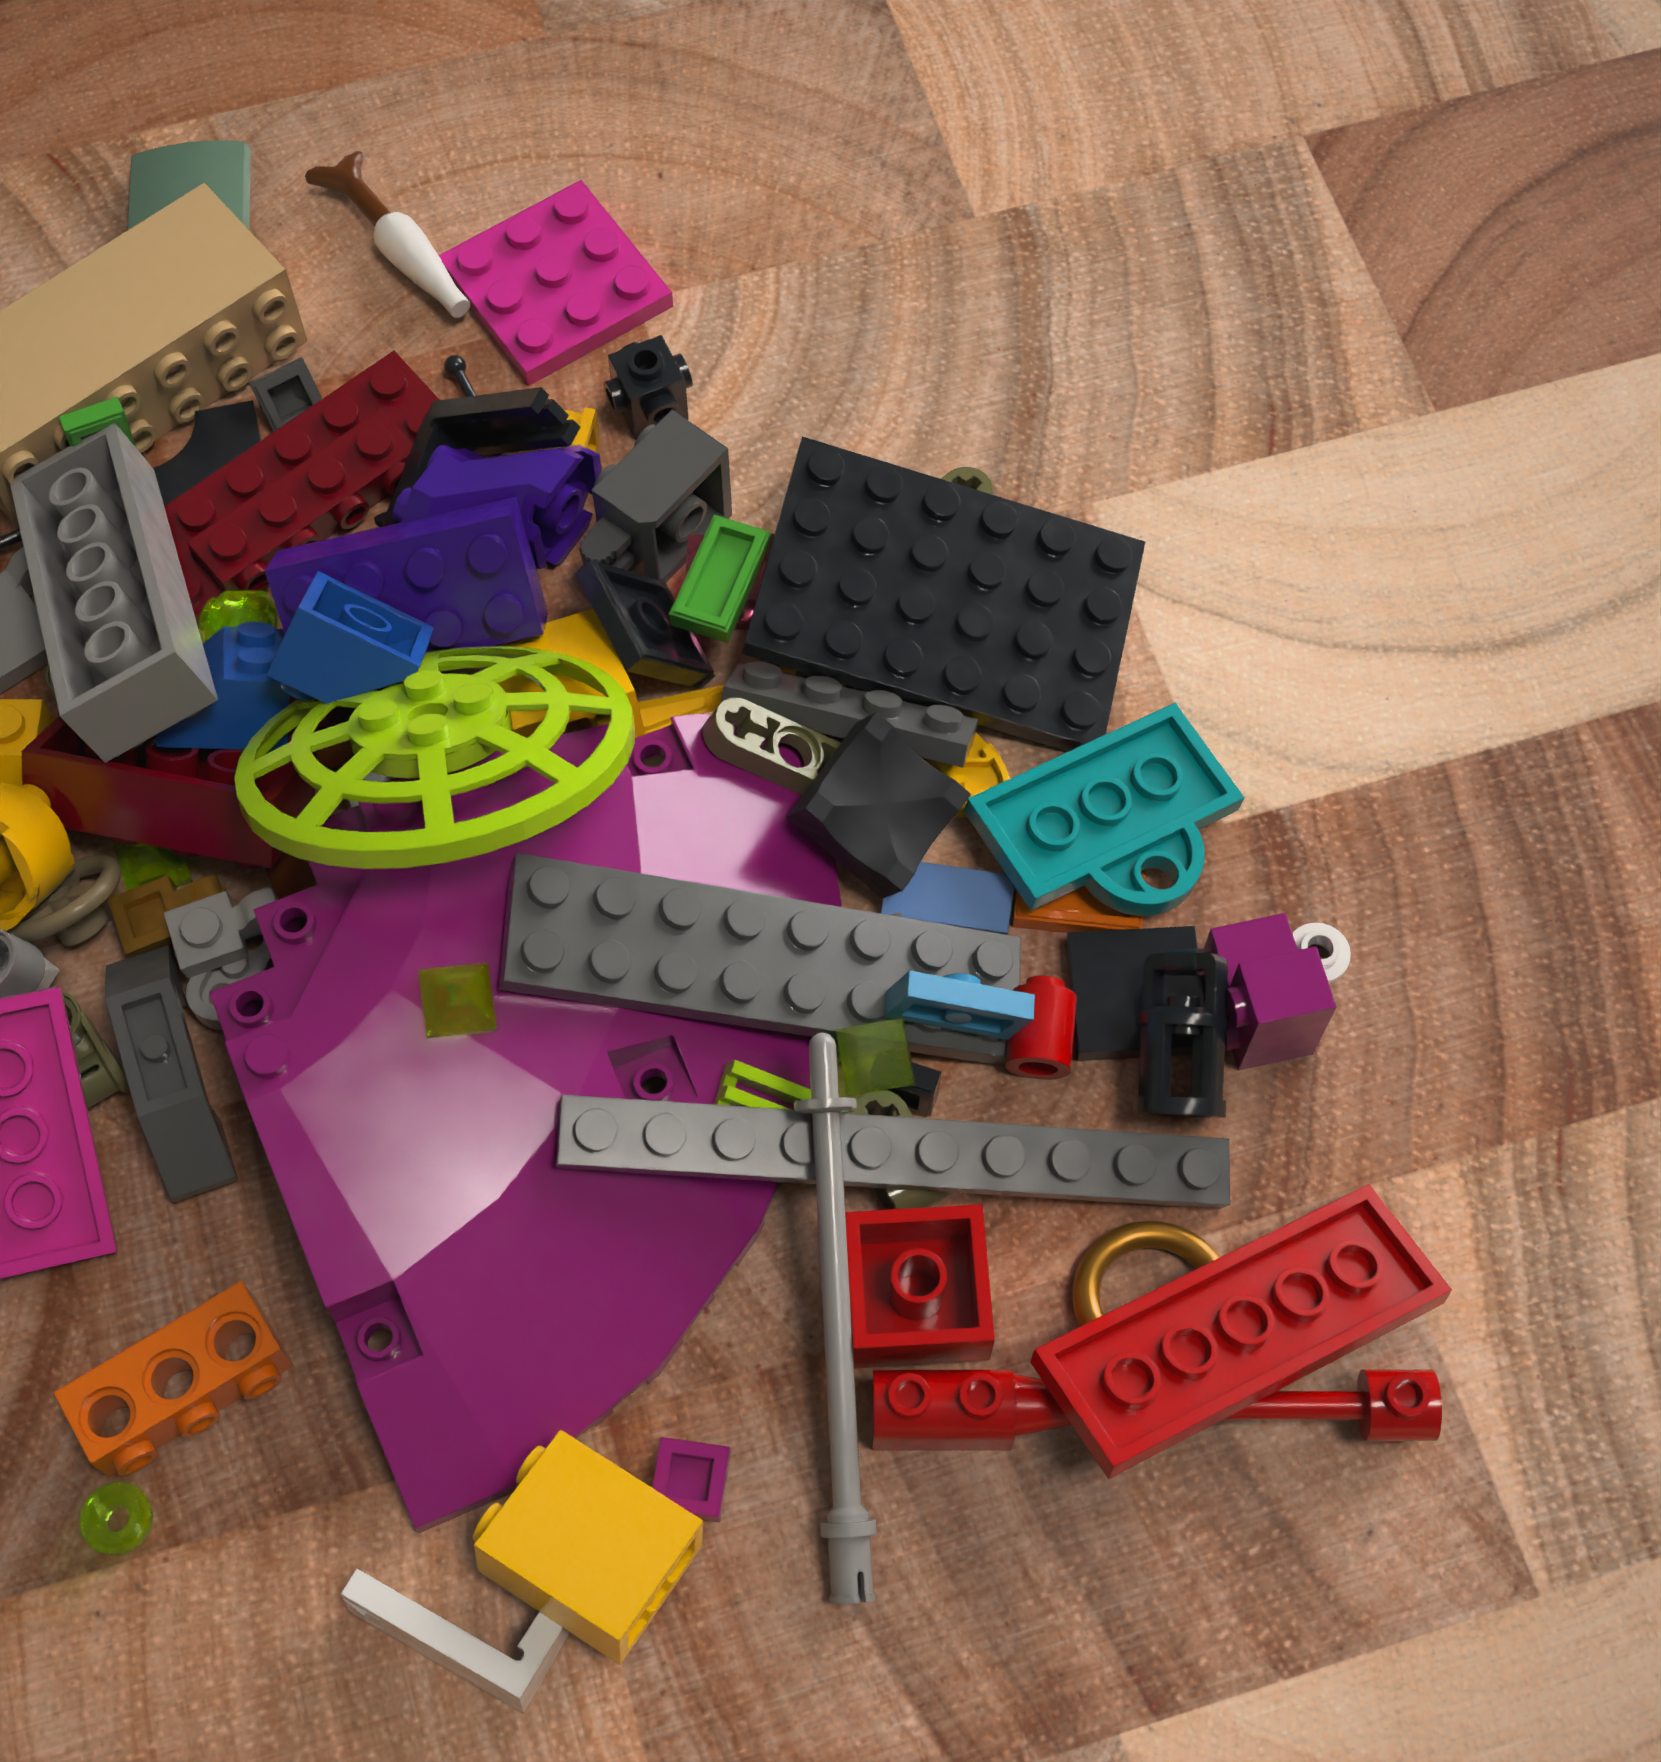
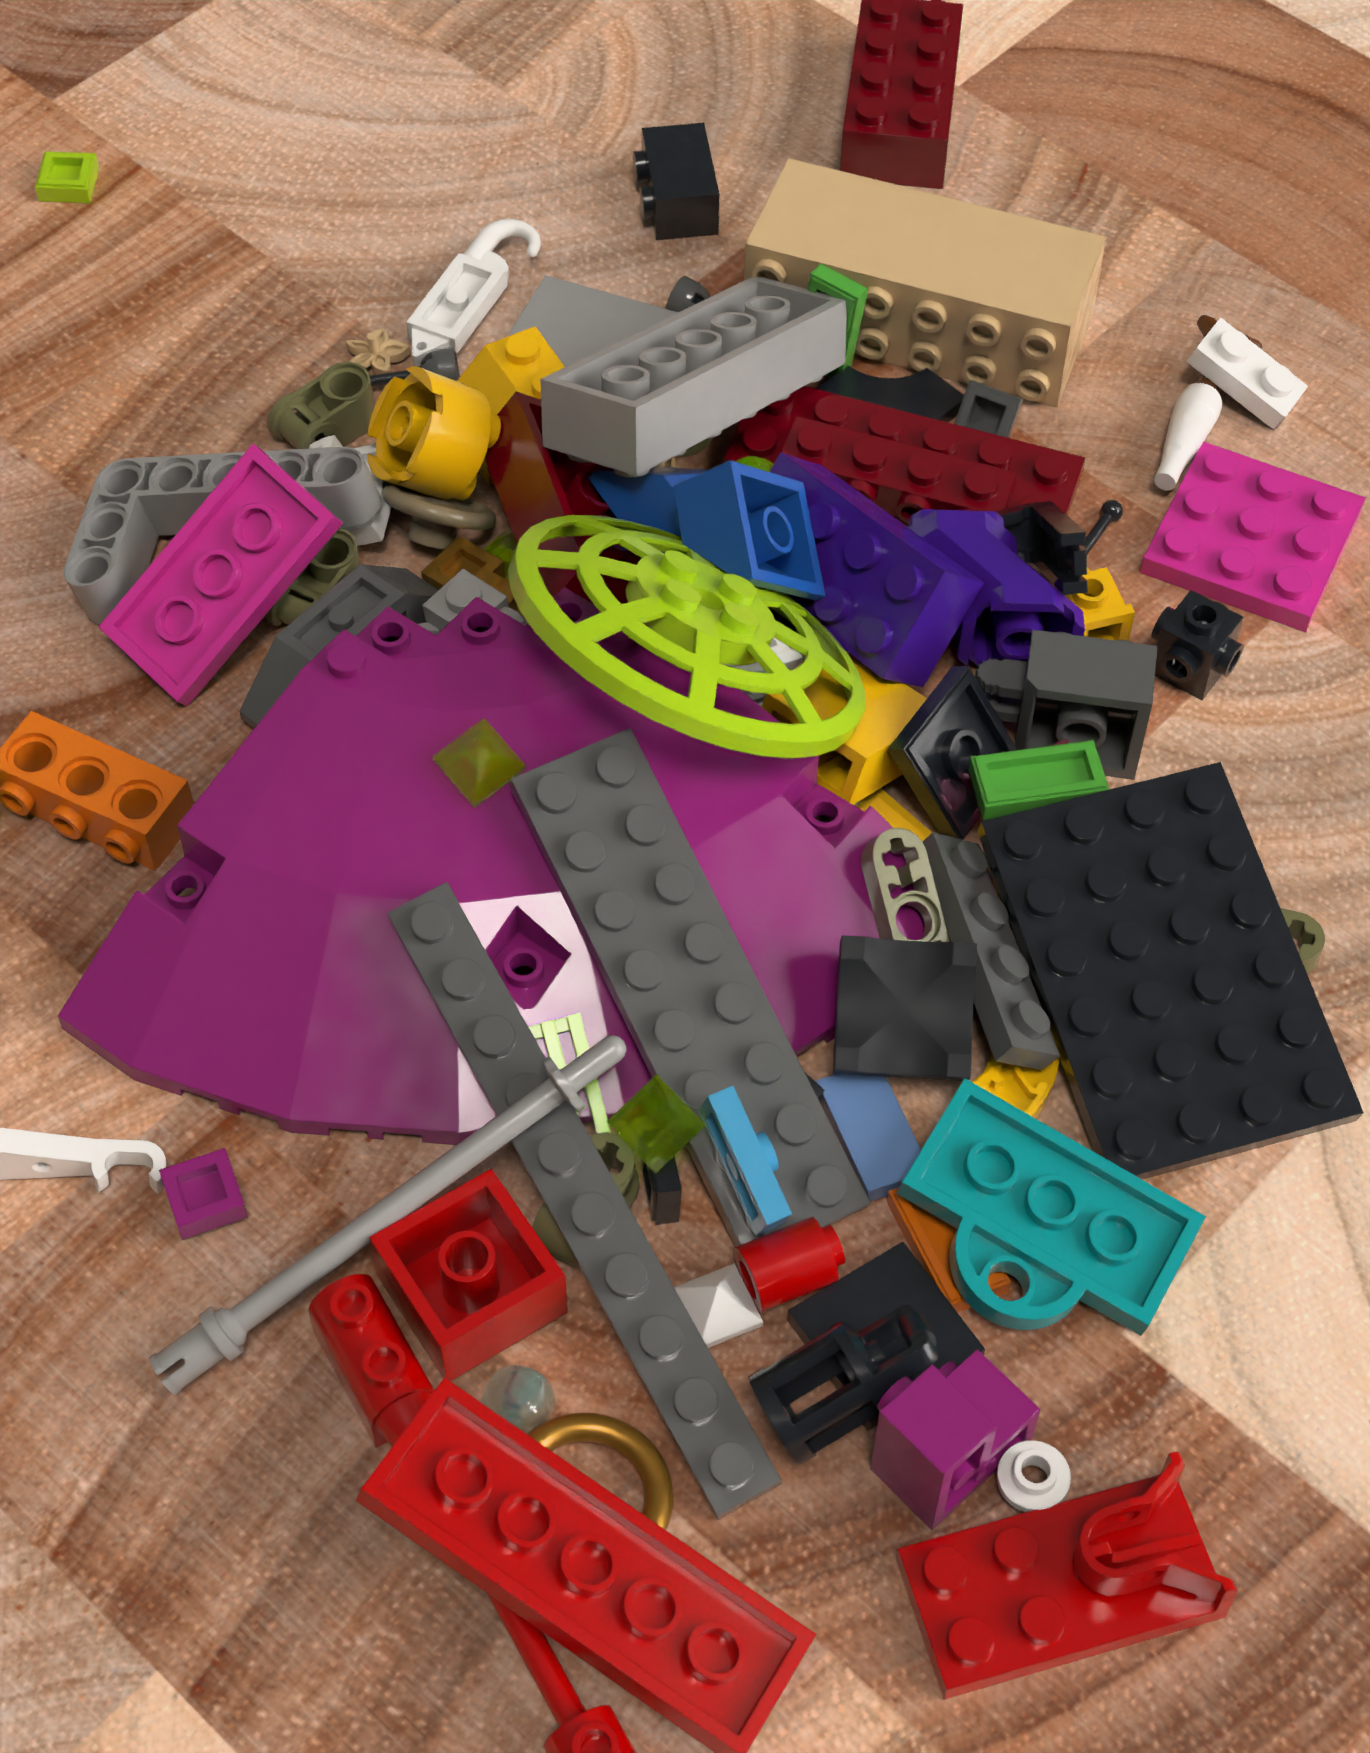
camera: 60 degrees right, 10 degrees down
(173, 170) = (1136, 260): sand green slope -> none
(393, 180) = (1247, 373): none -> white plate
(587, 1545) = (91, 1132): yellow brick -> none
(1034, 1312) = (520, 1396): none -> clear light blue piece
(1037, 1100) = (720, 1305): none -> white slope
(1409, 985) = (1062, 1583): none -> red plate

